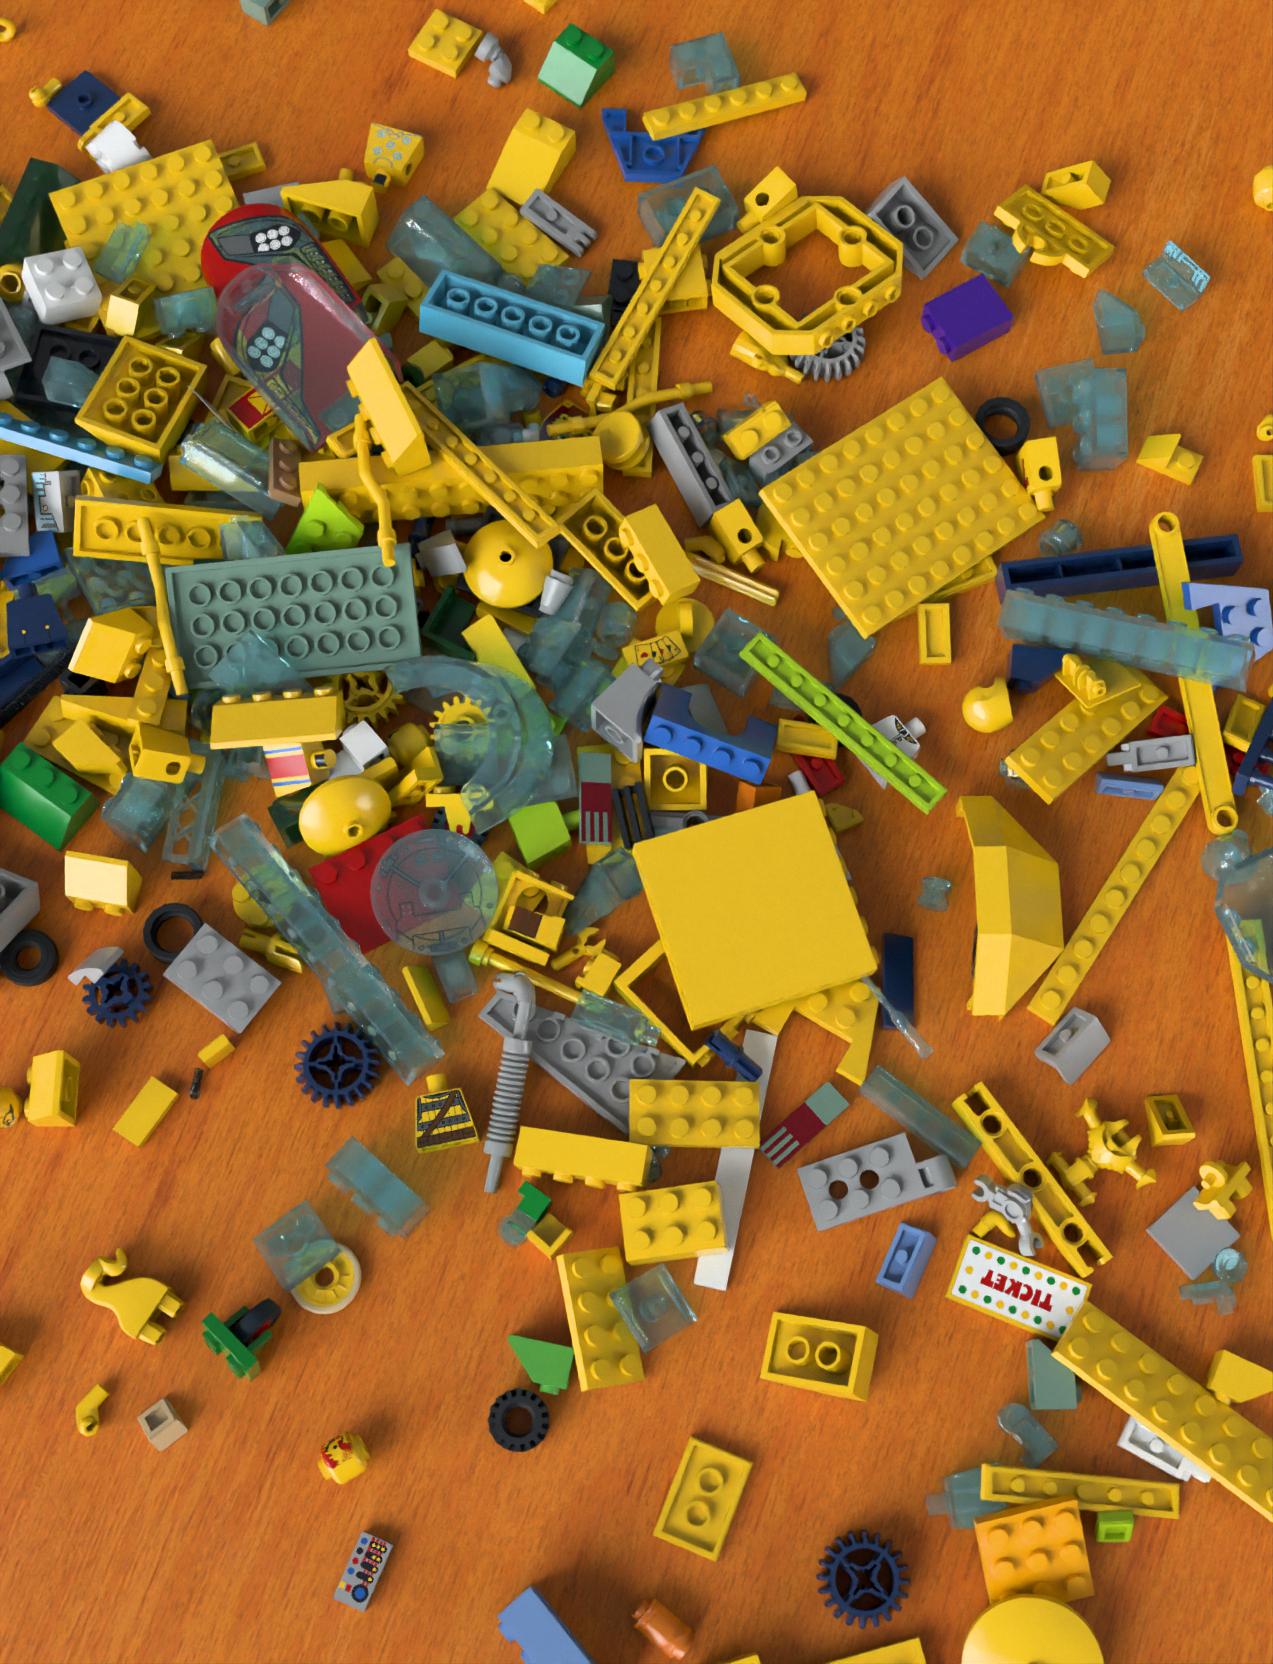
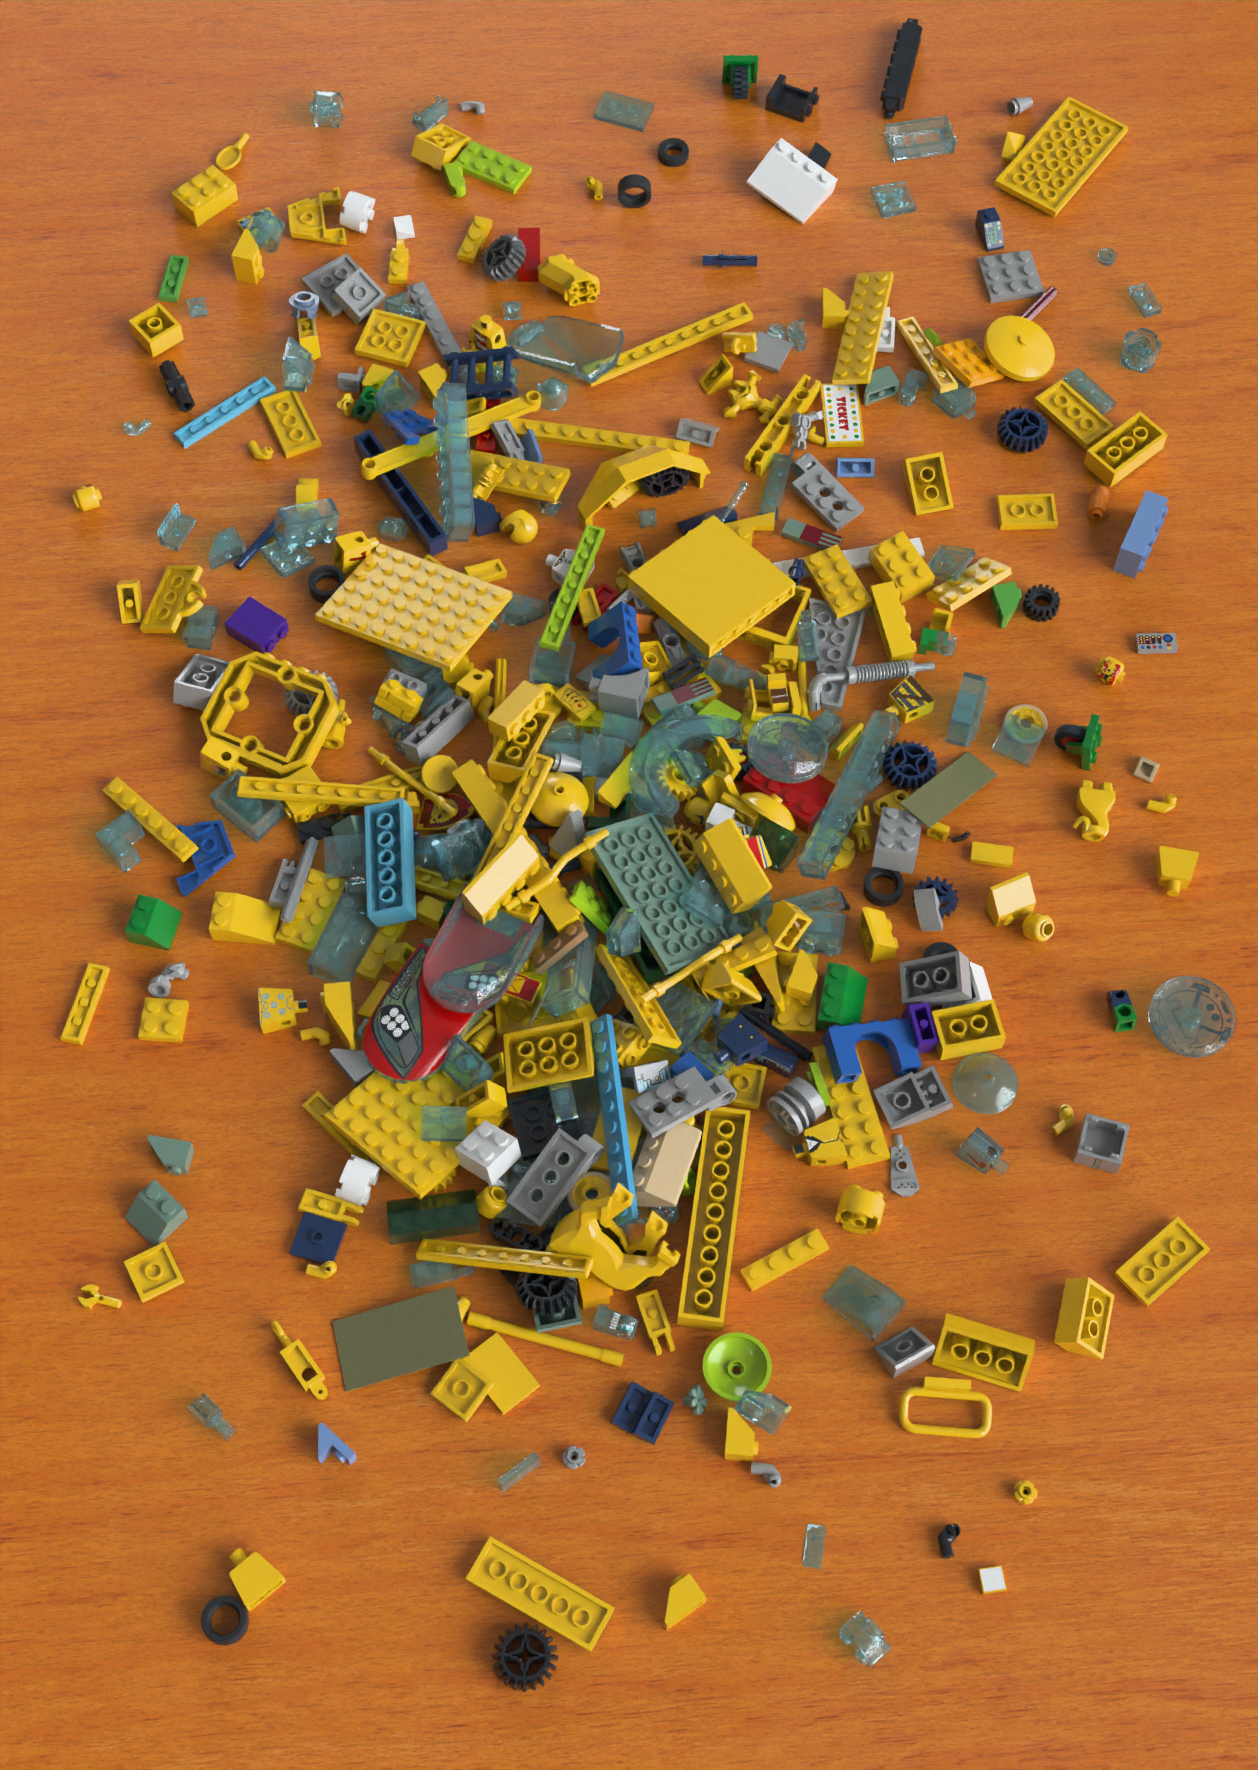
camera: 115 degrees left, 10 degrees down
(266, 1096) = (948, 789): none -> olive window
(295, 1011) = (891, 801): none -> yellow plate
(552, 233) = (299, 880): none -> light grey axle
(873, 841) = (632, 556): none -> light grey piece
(1102, 360) = (255, 546): none -> dark blue piece

